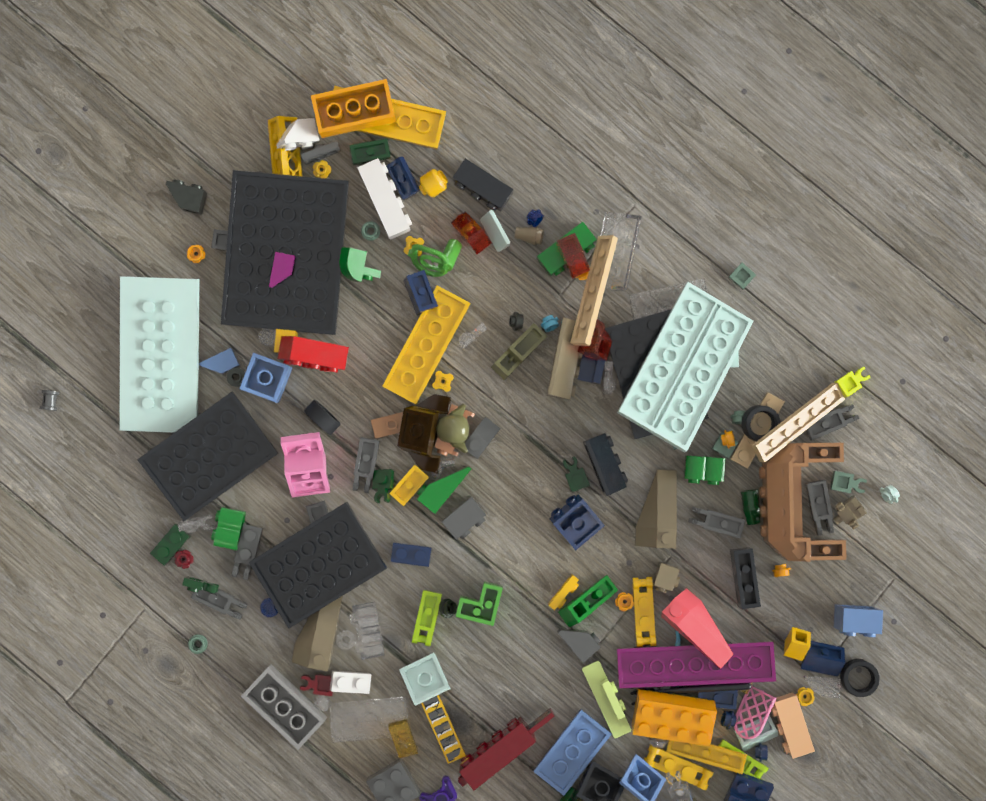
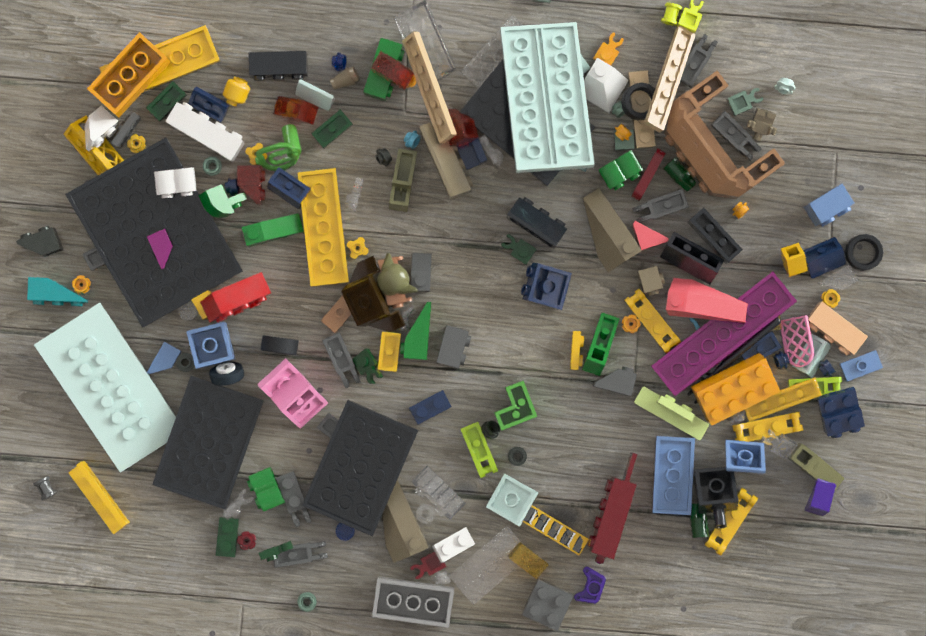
camera: 35 degrees left, 0 degrees up
(88, 438) = (99, 497): none -> yellow fence
(166, 239) = (48, 290): none -> teal slope
(262, 410) = (226, 373): none -> black wheel
(329, 222) = (175, 181): none -> white brick
(375, 259) = (232, 187): none -> dark blue plate
(383, 317) = (272, 230): none -> green slope
(392, 266) = (250, 181): none -> clear red slope
(452, 651) = (517, 450): none -> pearl dark grey plate
(490, 268) = (332, 129): none -> dark green plate
(687, 539) = (646, 237): none -> coral slope
(713, 583) = (692, 258): none -> black brick
(725, 488) = (648, 174): none -> dark red beam
(740, 388) = (604, 85): none -> white slope
(761, 364) = (607, 51): none -> light orange plate
(791, 770) = (861, 365): none -> medium blue plate
(836, 368) = (671, 14): none -> neon yellow bush

